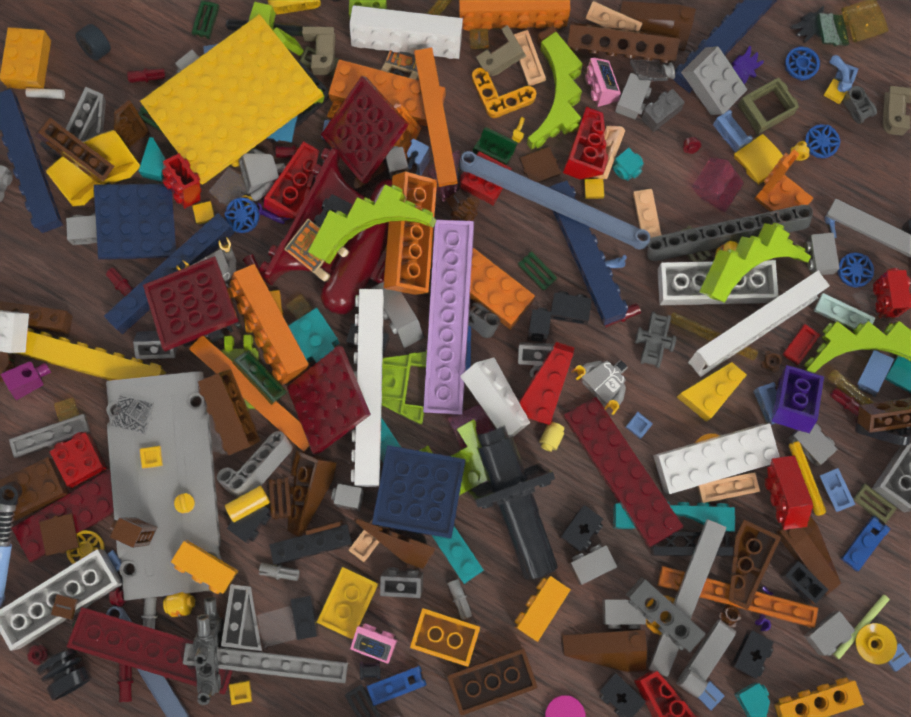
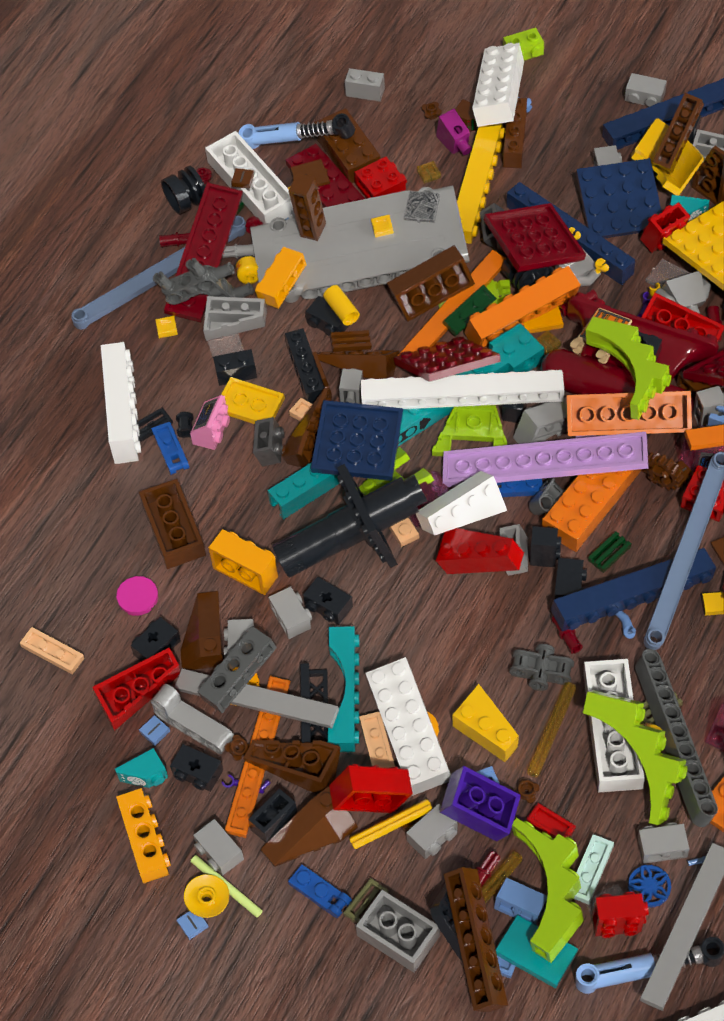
camera: 95 degrees right, 20 degrees down
(48, 436) = (400, 156): light grey tile -> none
(120, 283) = (557, 197): dark red axle -> none
(184, 503) = (340, 256): yellow tile -> none
(203, 212) = (640, 255): yellow tile -> none
(242, 215) = (638, 284): blue wheel -> none
(258, 467) = (380, 316): light grey beam -> none
(275, 664) = (190, 353): light grey tile -> none
(278, 571) = (279, 345): light grey axle -> none
(445, 637) = (215, 481): light orange brick -> none
(459, 599) = (252, 497): light grey axle -> none
(552, 436) = (425, 570): light yellow brick -> none
(604, 381) = (487, 616): light grey torso -> none
(623, 472) = (389, 633): dark red plate -> none
(638, 425) = (443, 656): medium blue tile -> none
(647, 212) = (691, 658): light nougat plate -> none
(758, 323) = (567, 759): white tile -> none
(837, 490) = (379, 856): medium blue hinge -> none

